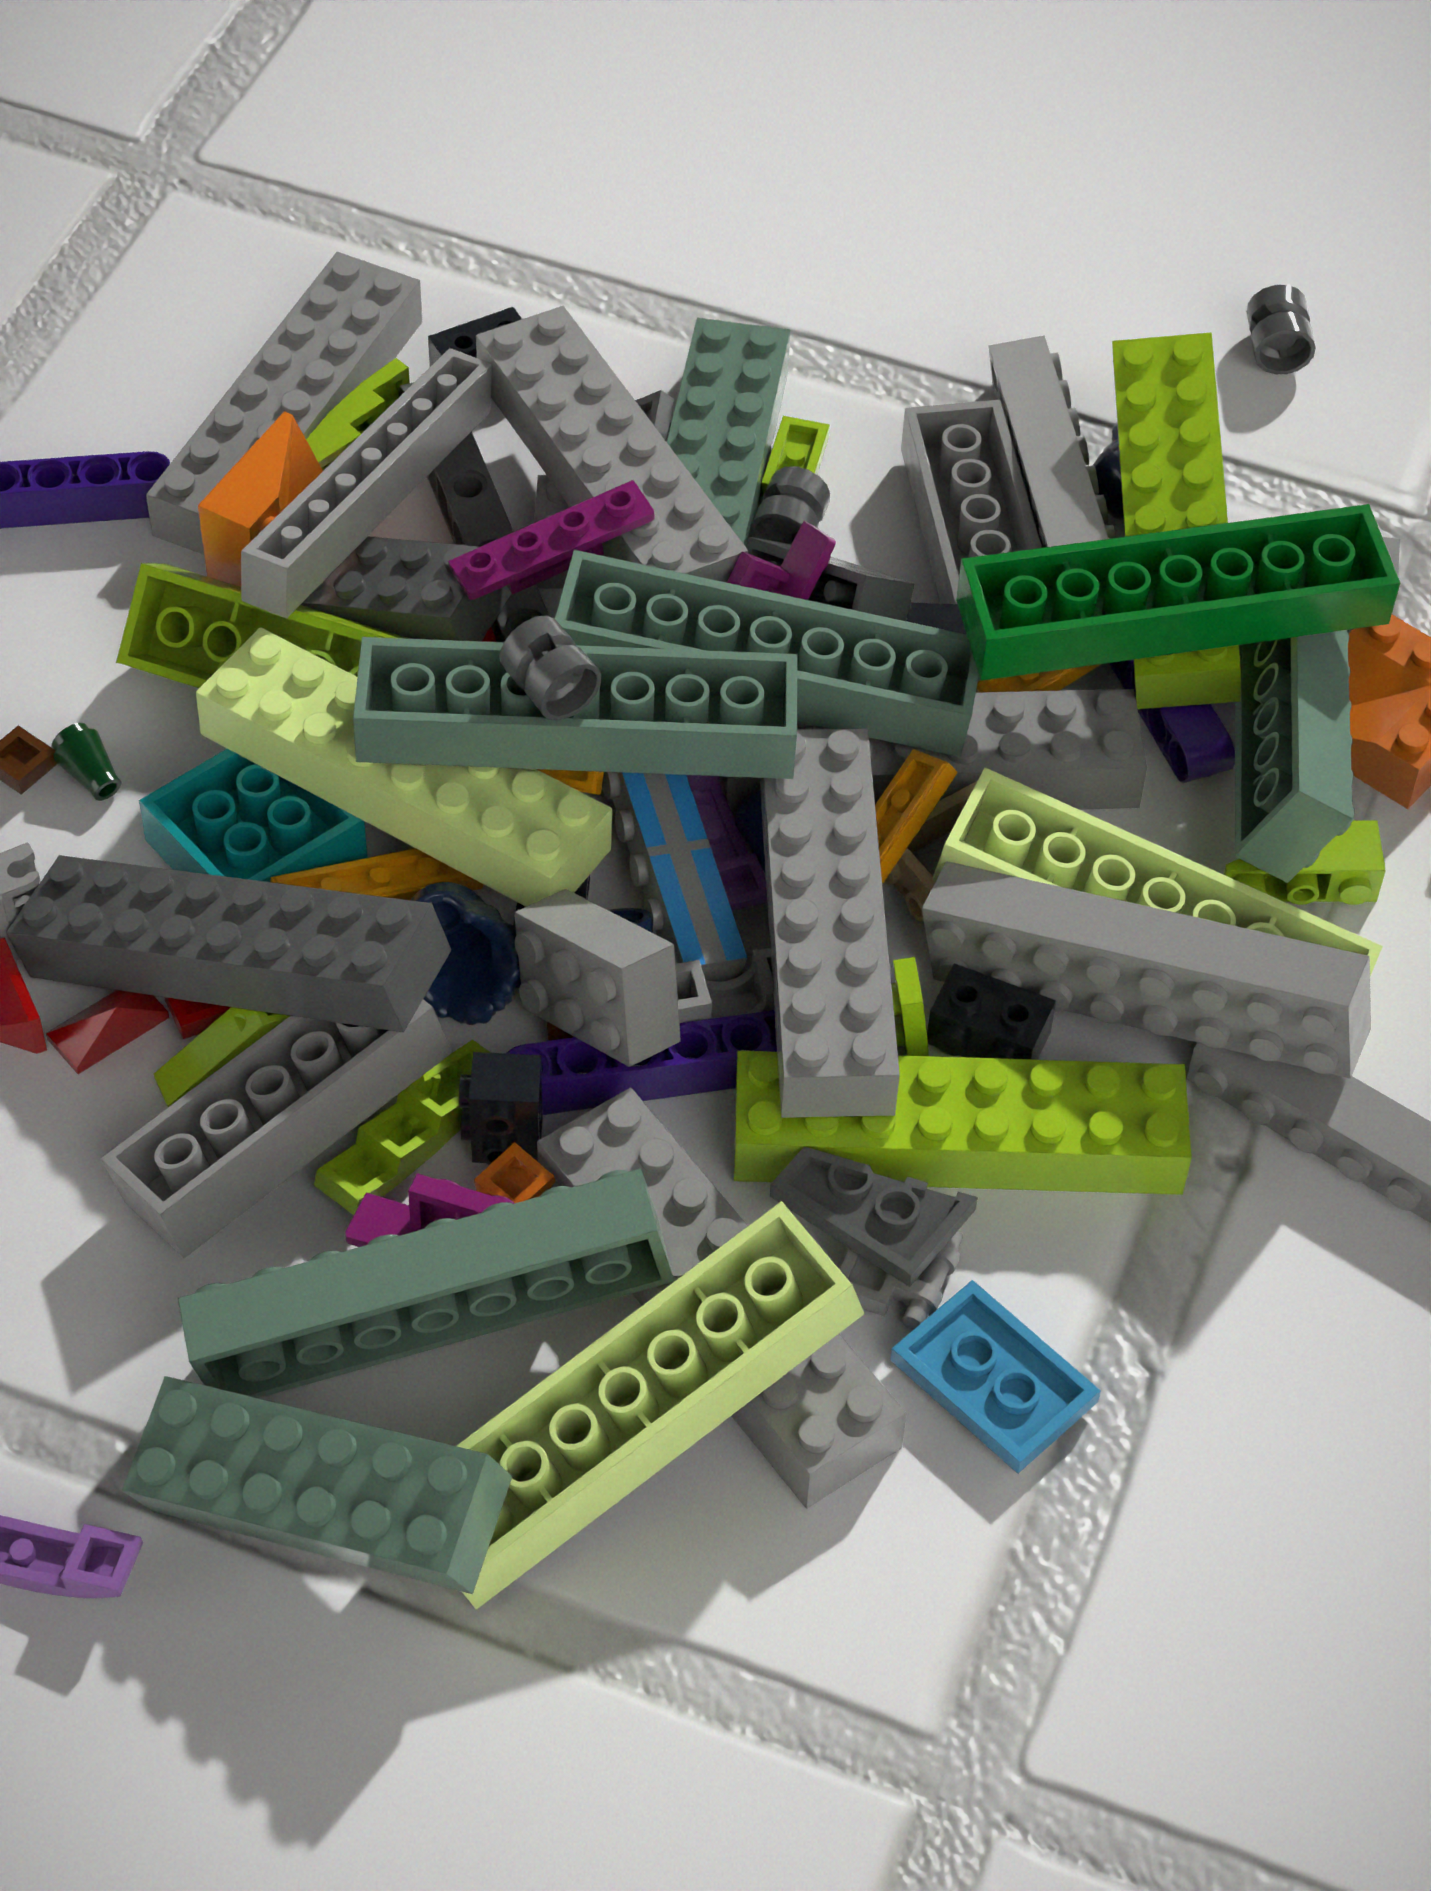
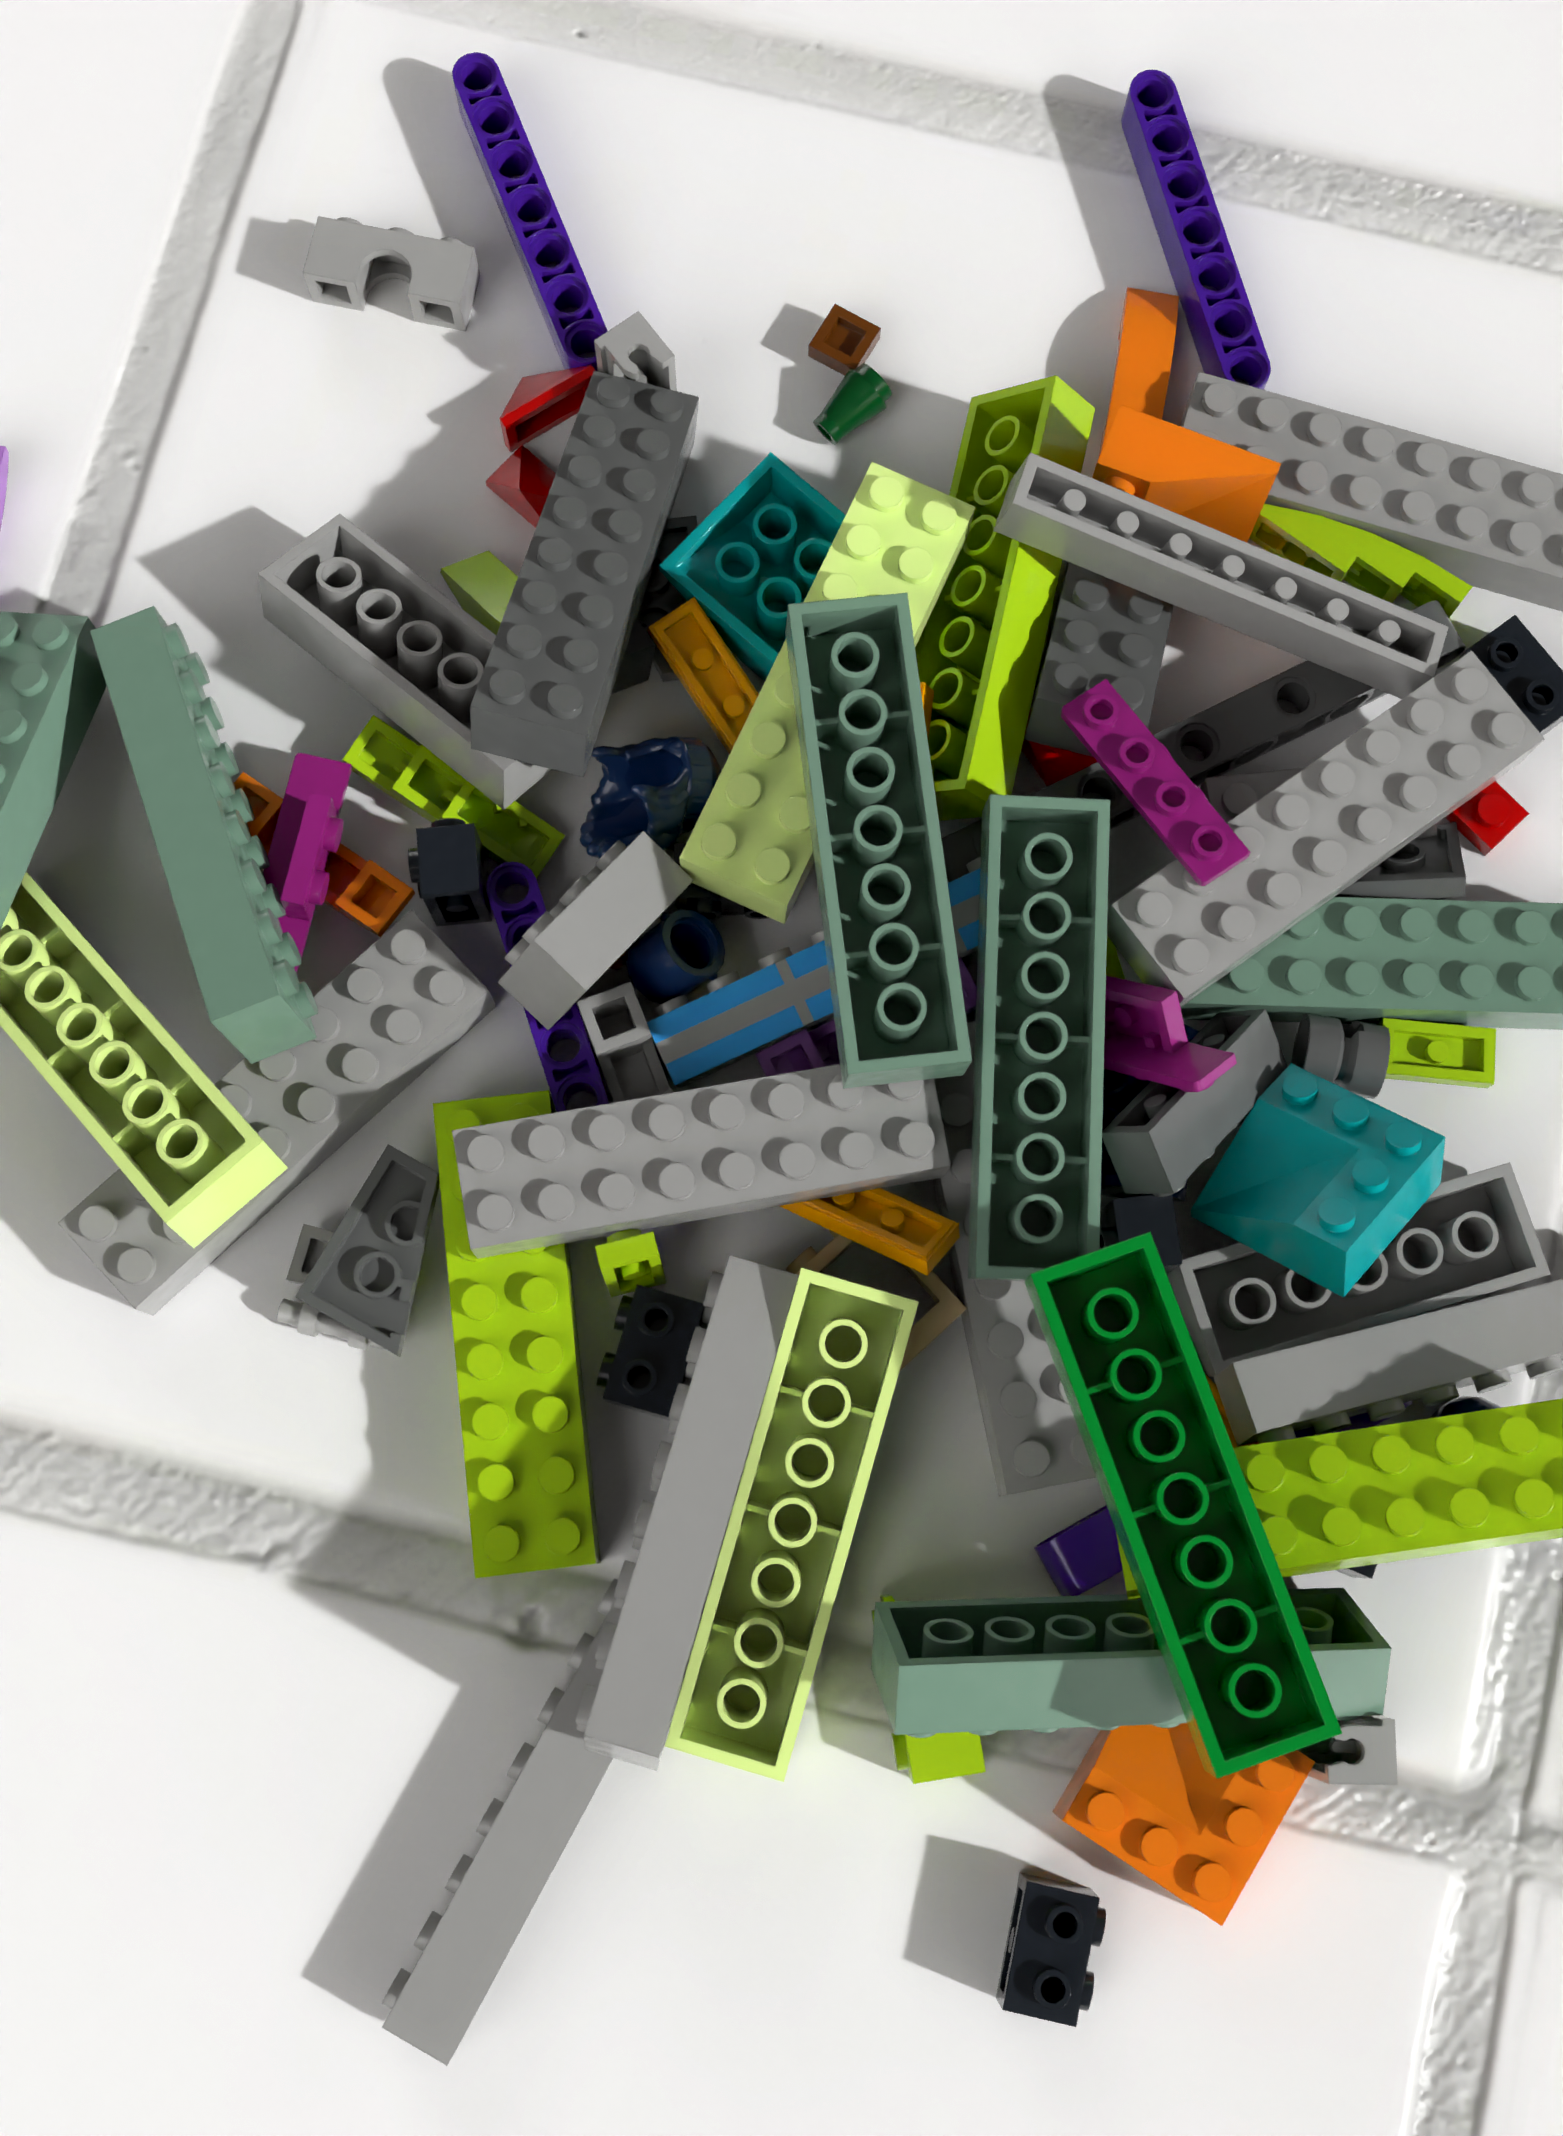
camera: 80 degrees right, 25 degrees up
(110, 546) = (1143, 354): none -> orange slope
(550, 667) = (873, 781): dark grey wheel -> none
(910, 510) = (1321, 1179): none -> teal slope
(995, 1376) = (224, 1398): dark azure plate -> none

